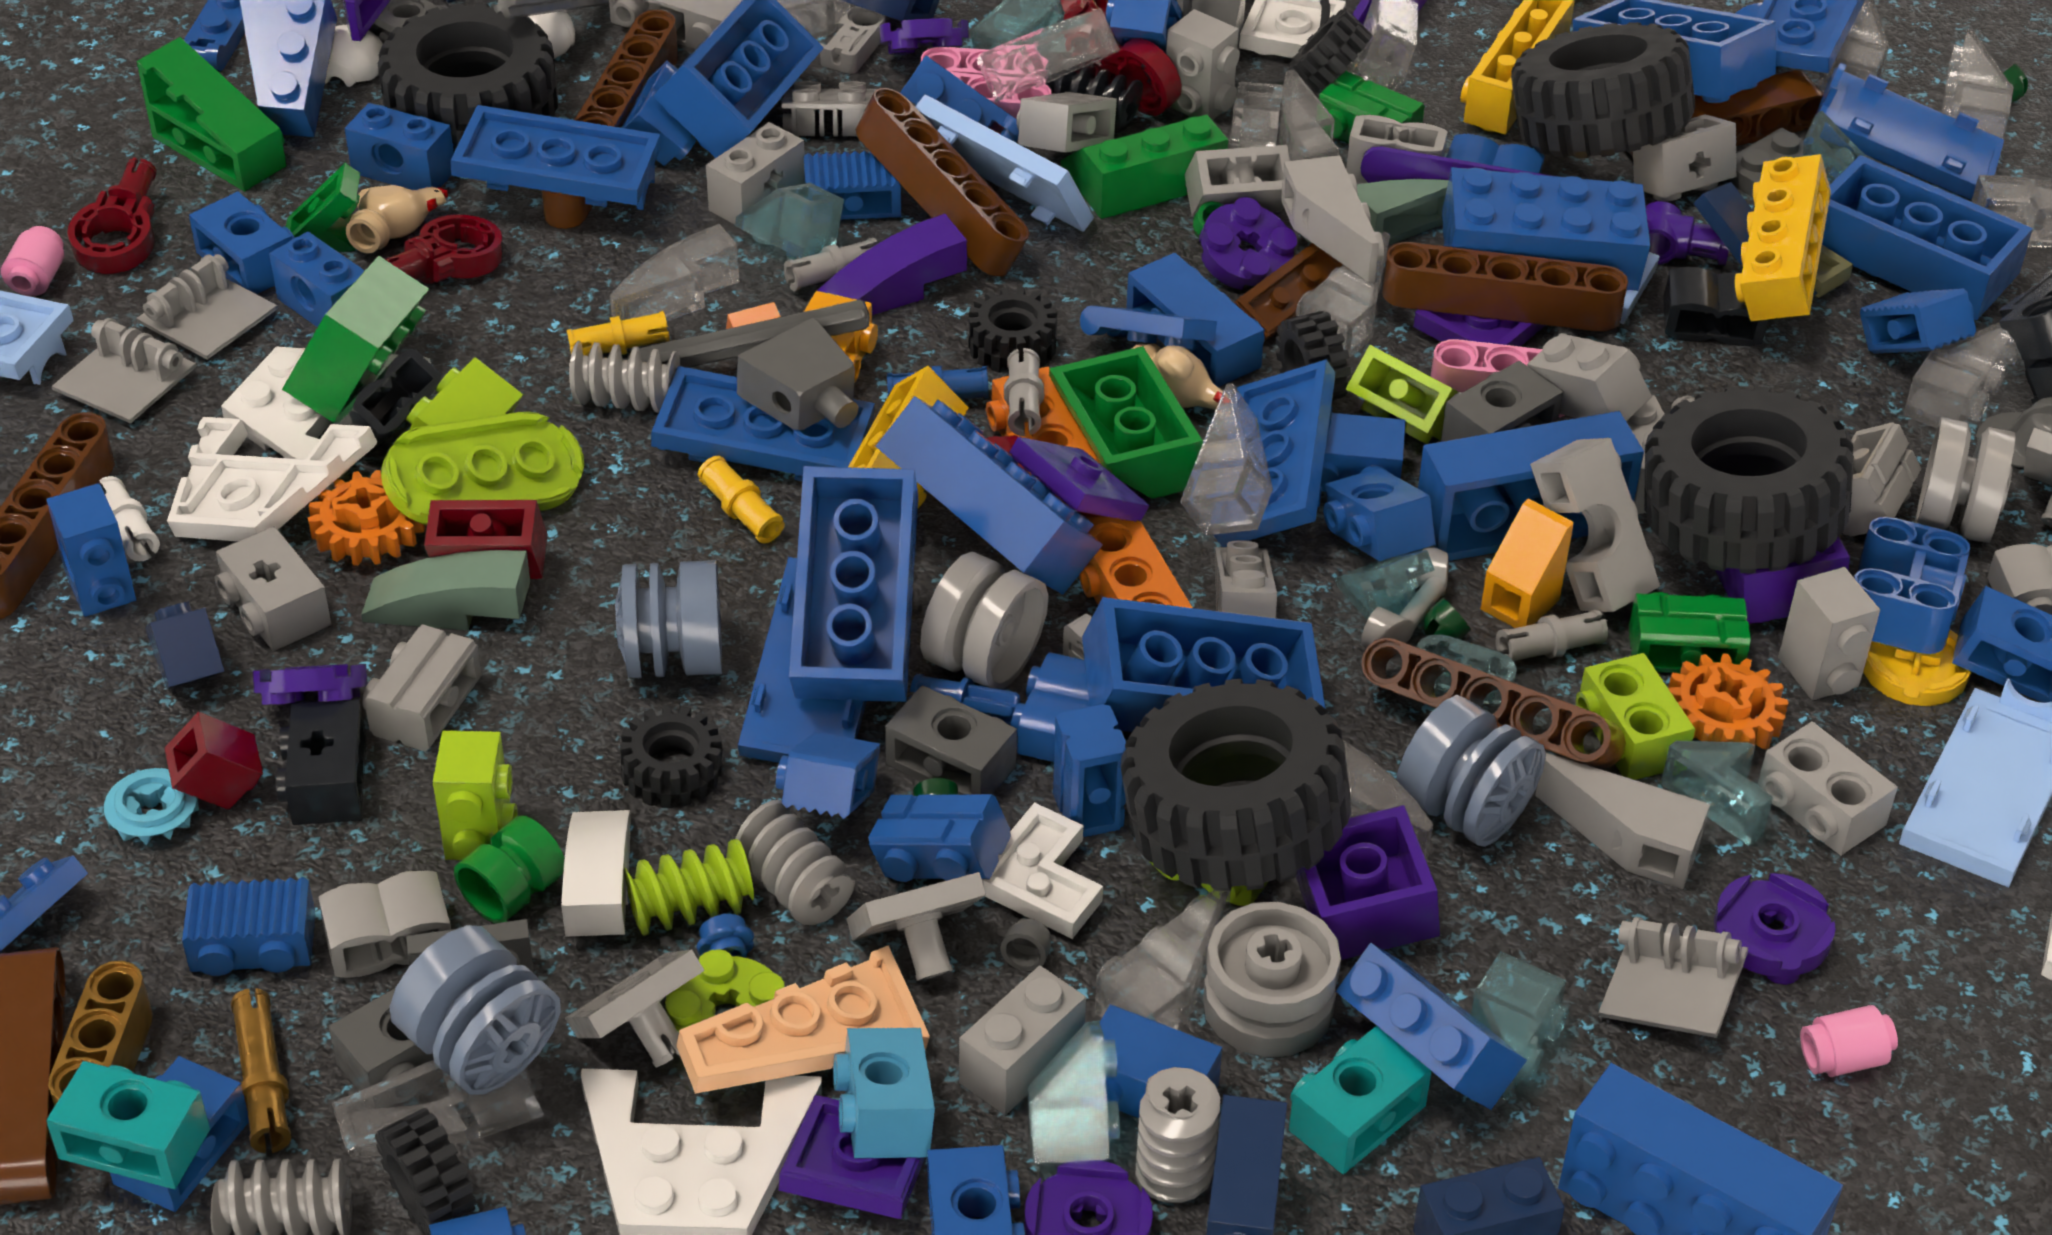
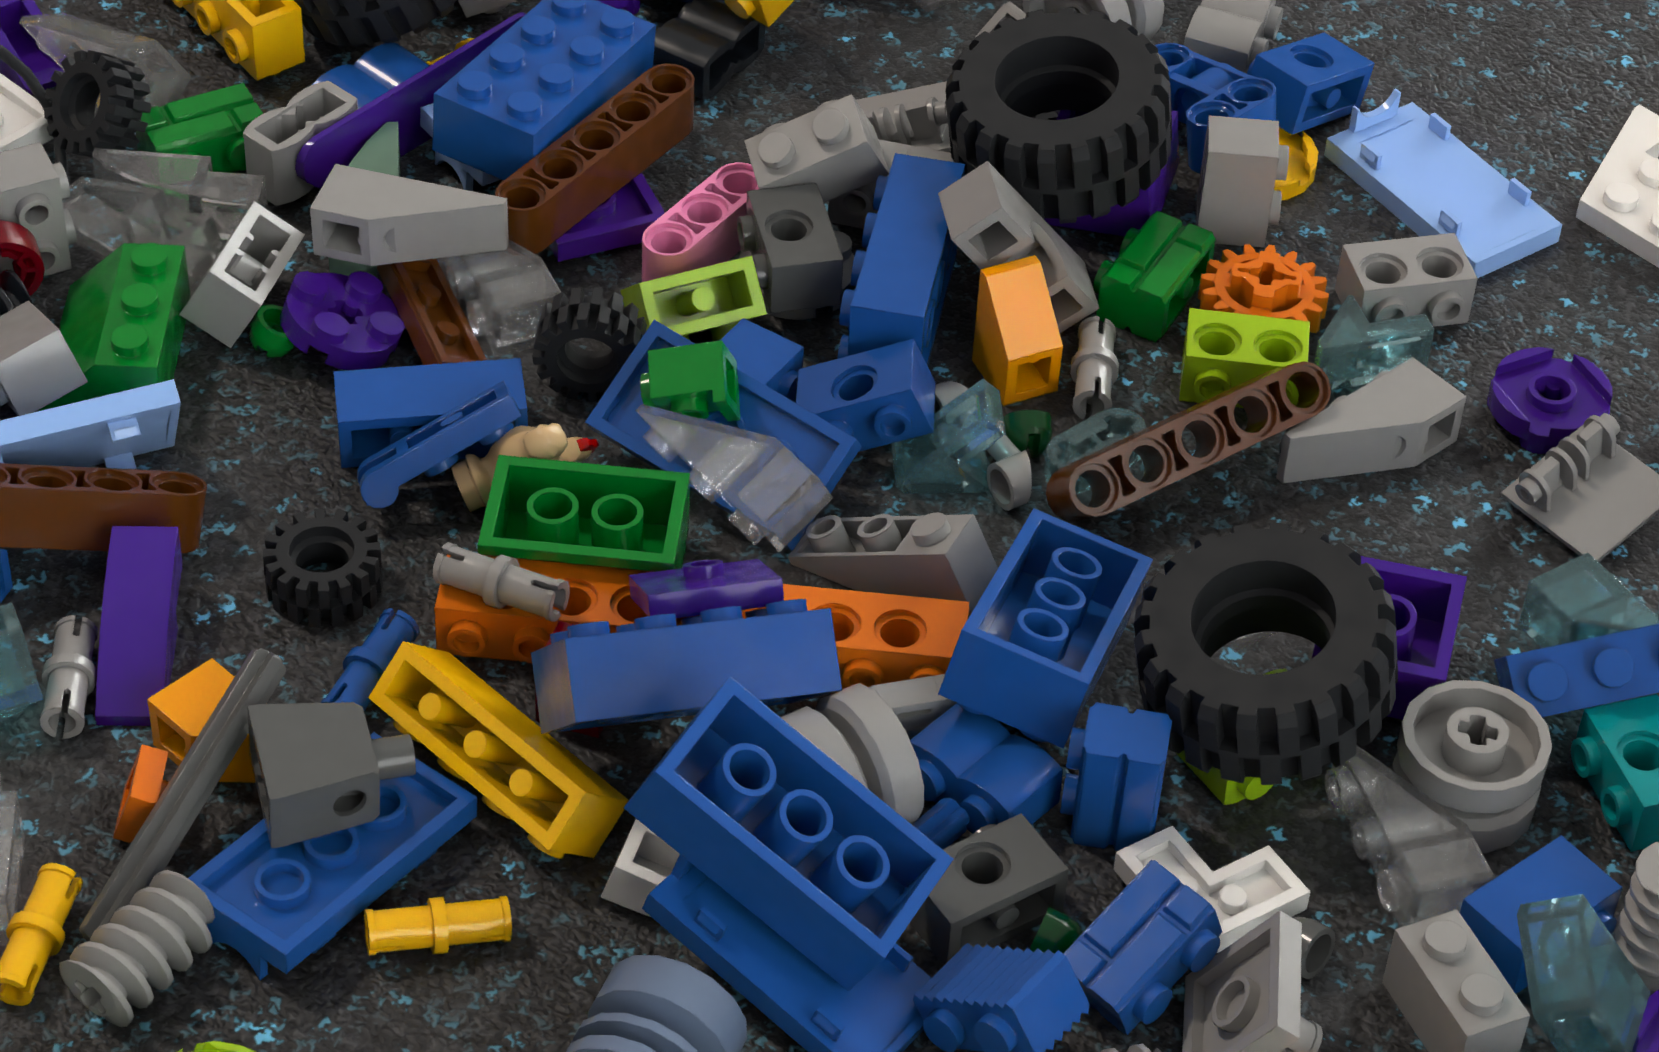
camera: 65 degrees left, 0 degrees up
(1279, 402) = (692, 380): none -> green brick
(1471, 770) = (1290, 477): sand blue wheel -> none

